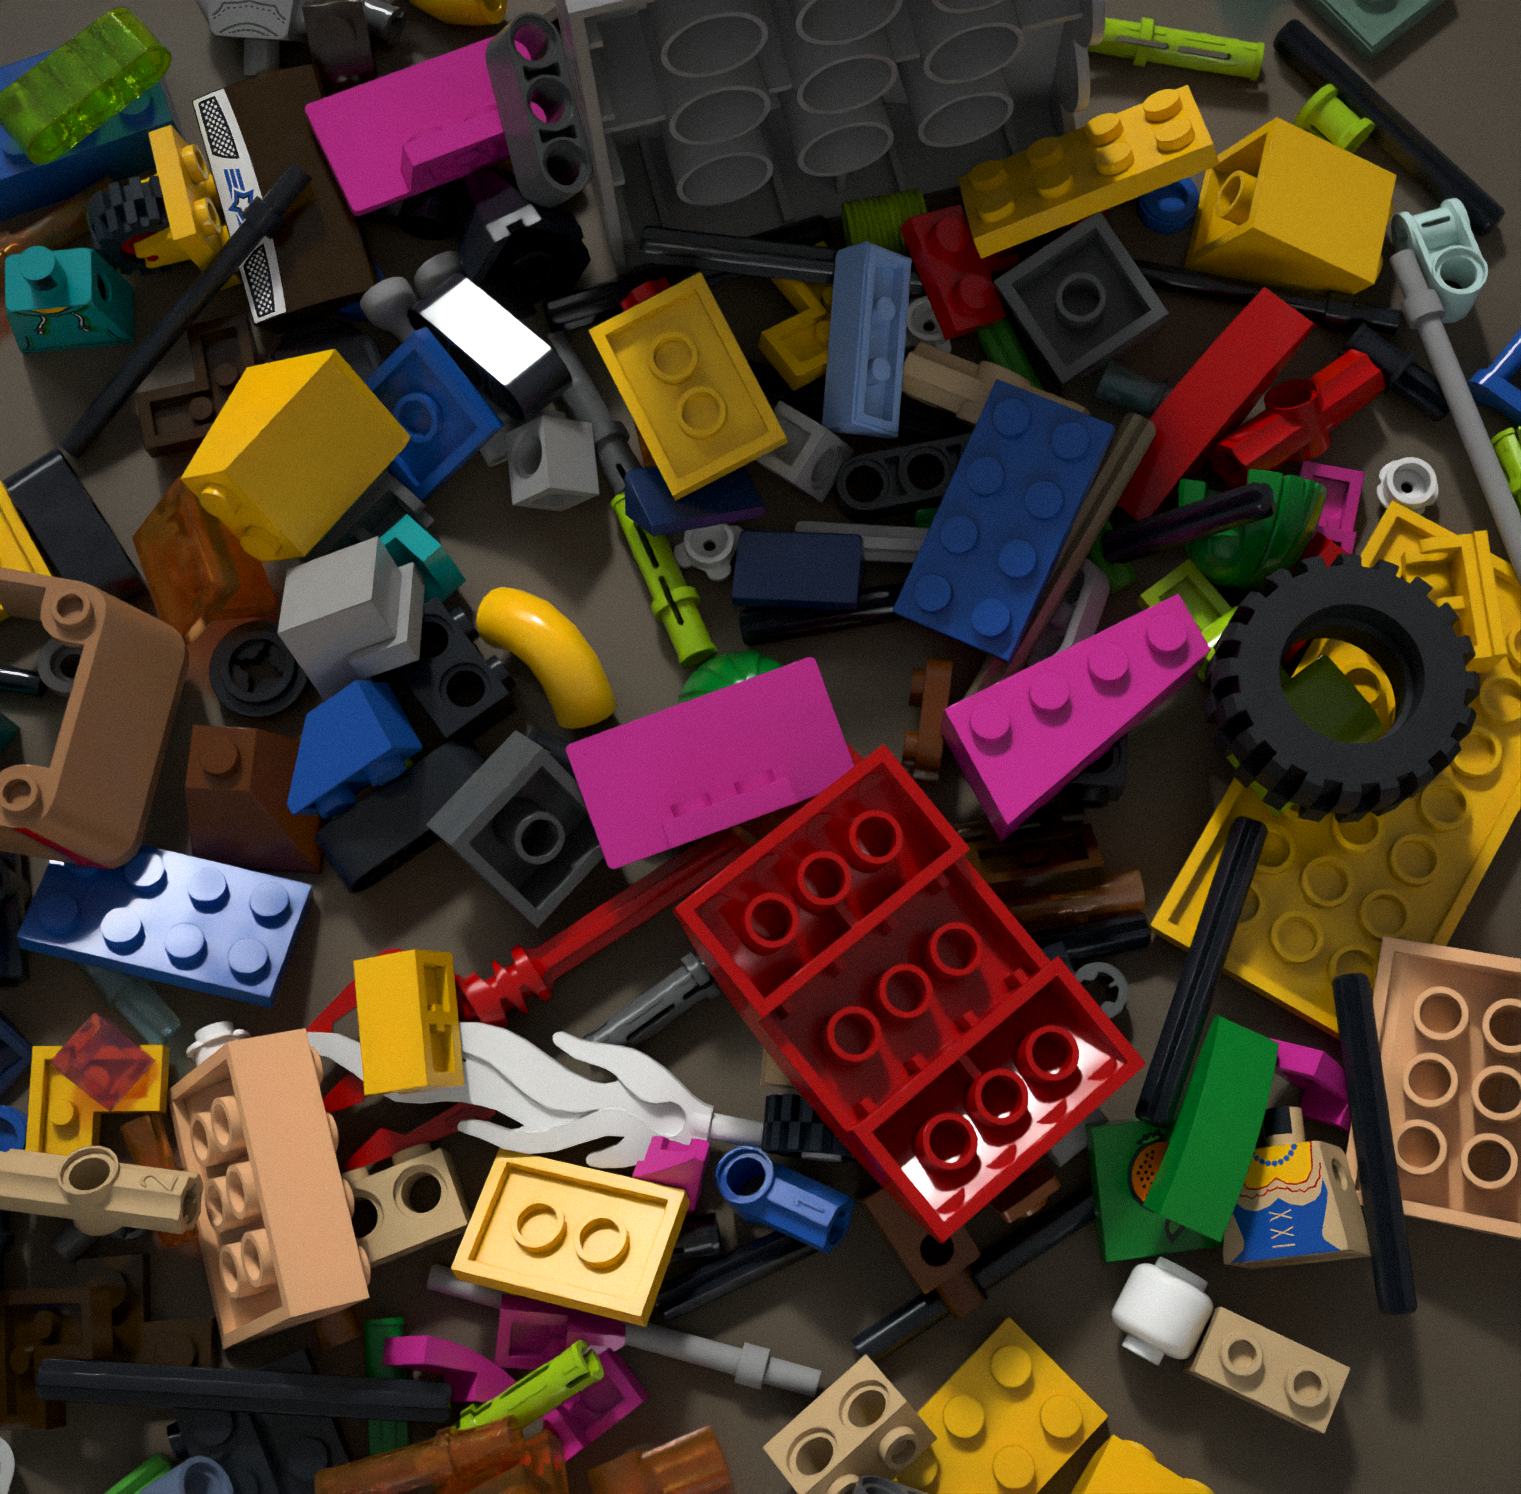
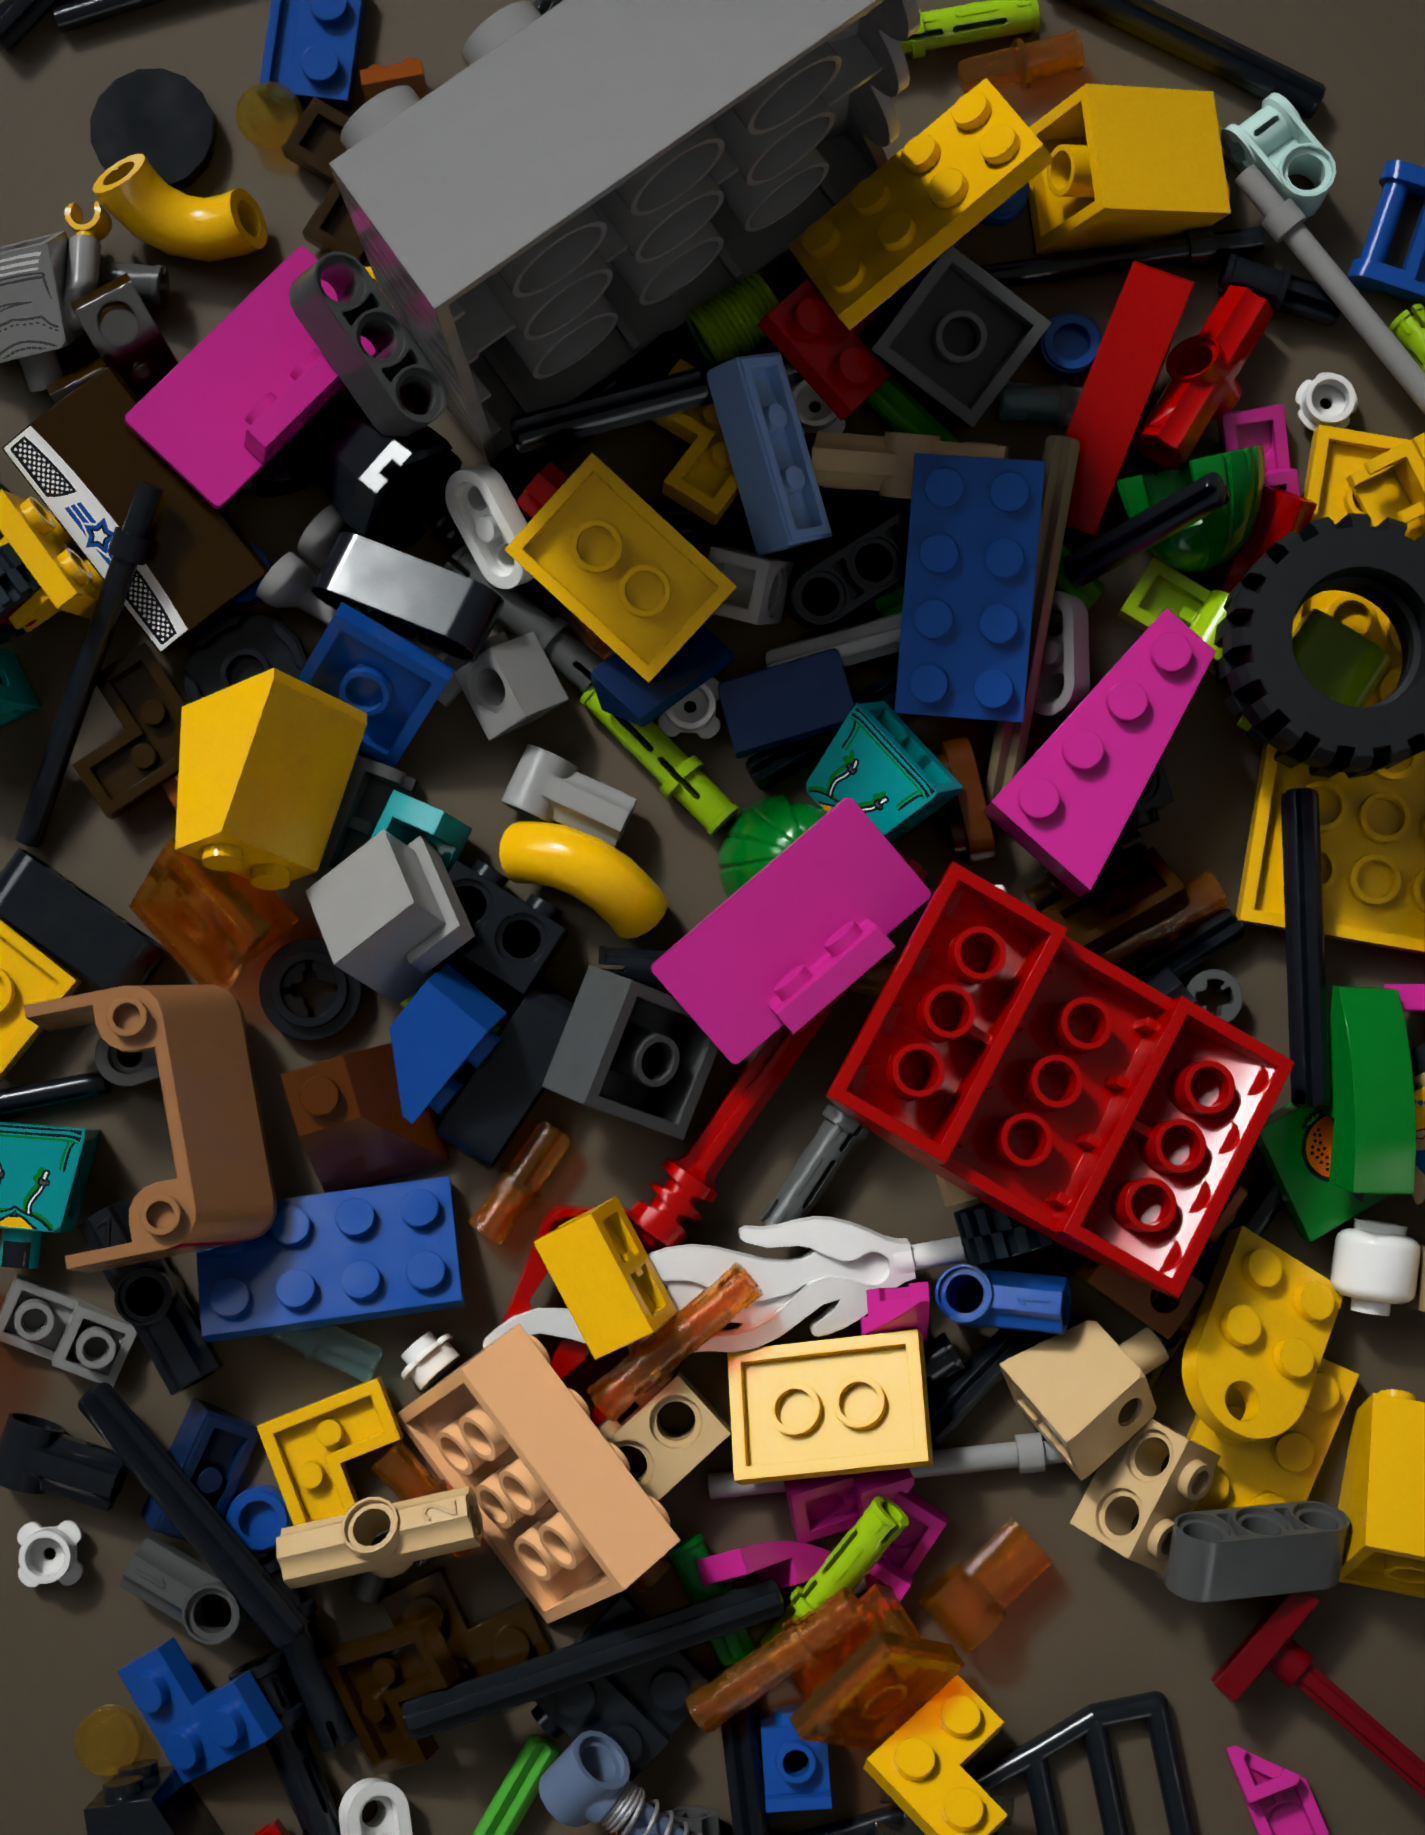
camera: 25 degrees left, 10 degrees up
(102, 1061) = (332, 1417): clear pink slope -> none
(374, 917) = (520, 1182): none -> clear orange axle
(429, 1120) = (663, 1351): none -> clear orange pin
(556, 572) = (554, 791): none -> light grey piece
(587, 299) = (487, 522): none -> white plate
(829, 1319) = (1086, 1391): none -> tan torso
(861, 660) = (883, 771): none -> teal torso
(1022, 1327) = (1260, 1332): none -> yellow plate
(1179, 350) = (1069, 345): none -> blue tile
(1238, 100) = (1023, 62): none -> clear orange axle
(1333, 121) = (1130, 53): lime bush -> none

